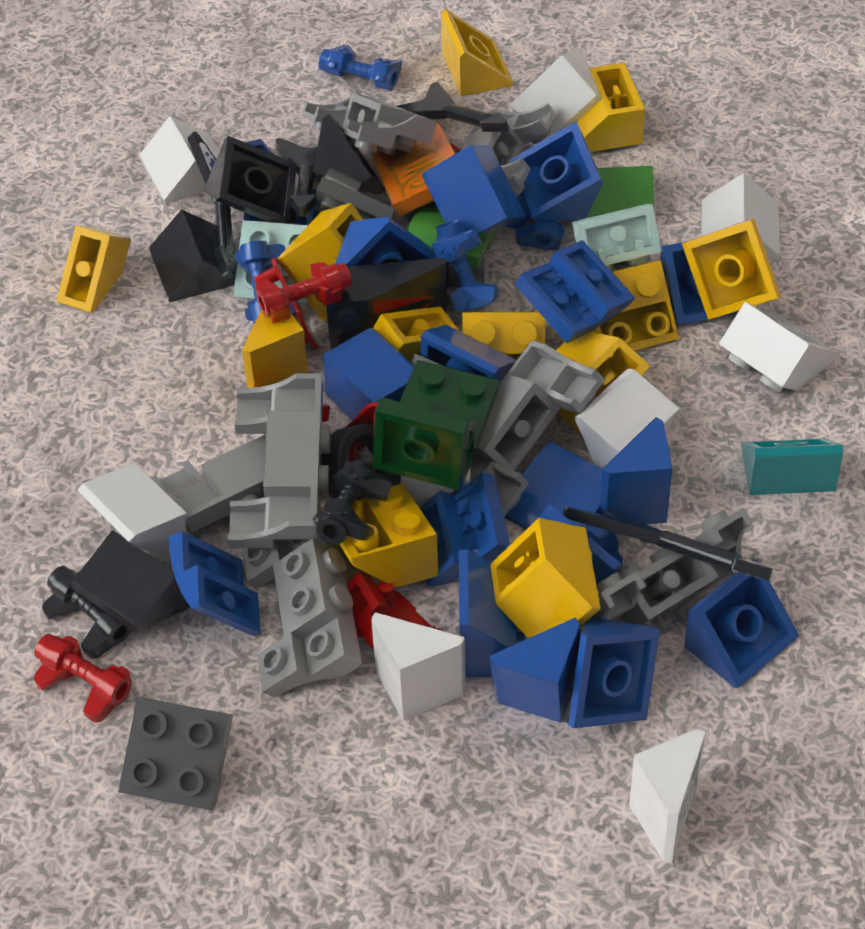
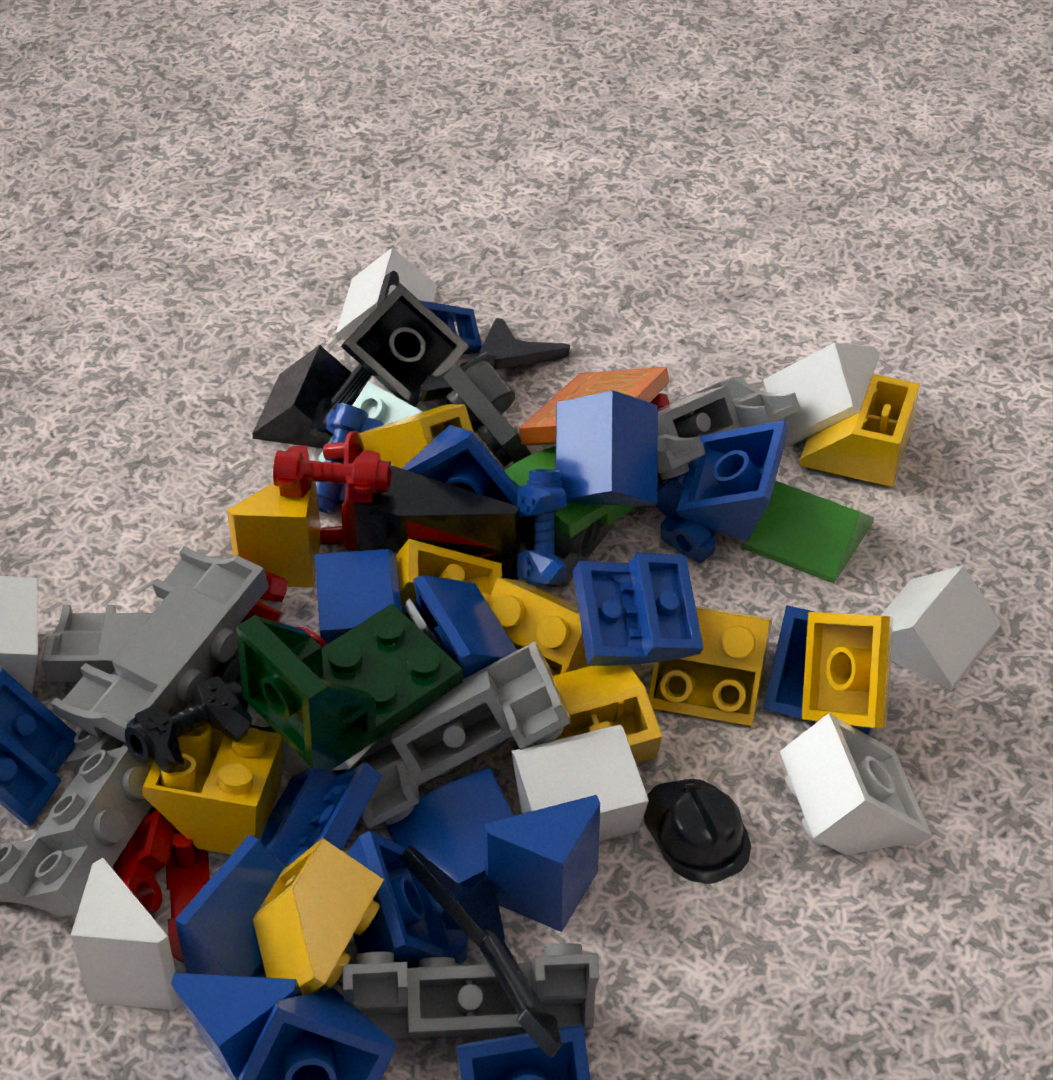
camera: 30 degrees right, 5 degrees down
(92, 267) = (202, 367): yellow slope -> none
(338, 152) = (526, 354): black slope -> none
(342, 61) = (662, 293): blue piece -> none
(374, 123) = (588, 335): light grey bracket -> none
(441, 106) = (688, 354): black piece -> none
(472, 57) = (773, 314): yellow slope -> none
(621, 235) = (741, 573): light aqua bracket -> none
(705, 418) = (698, 830): none -> black piece
(792, 465) = (753, 937): teal slope -> none

